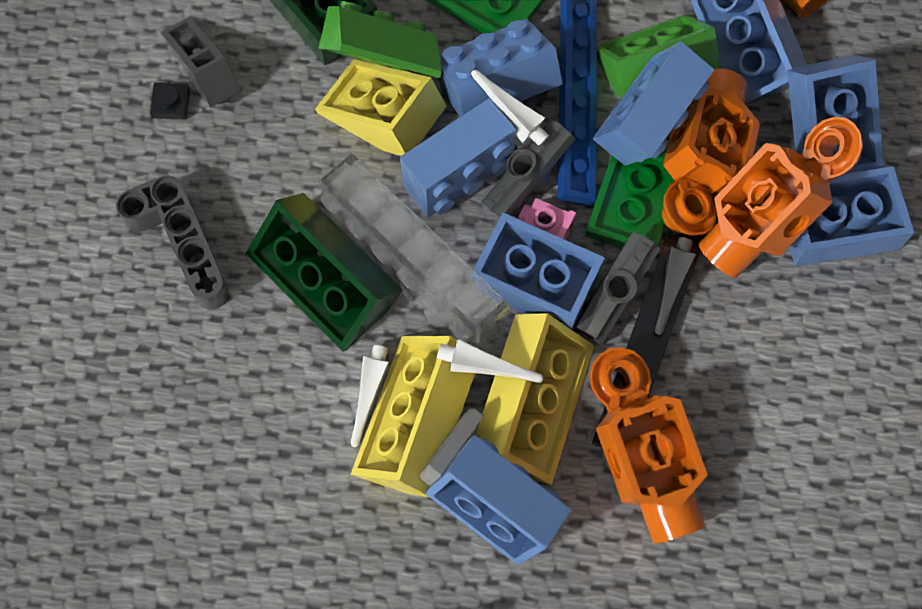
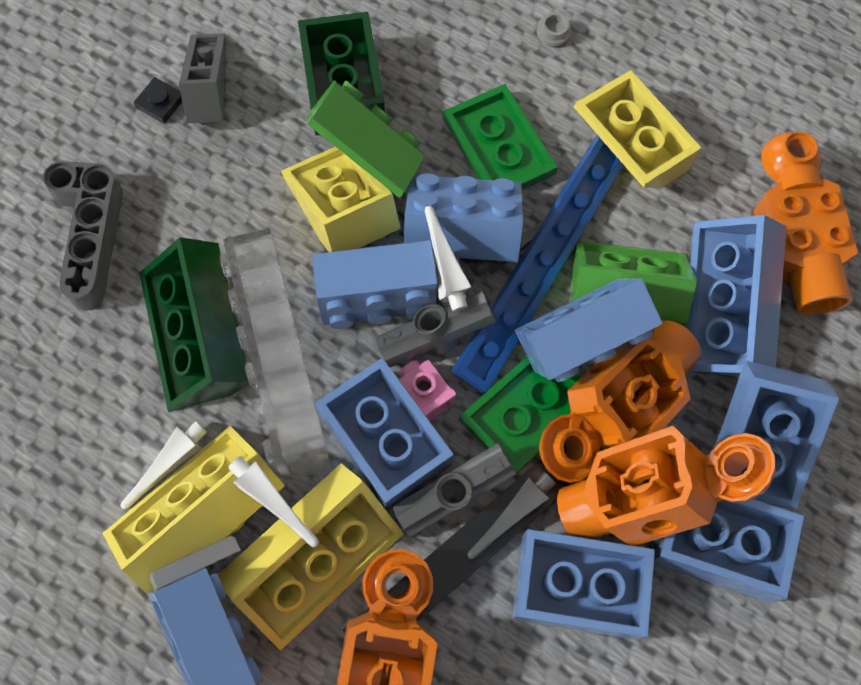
camera: 25 degrees right, 0 degrees up
(758, 306) = (584, 585): none -> medium blue brick

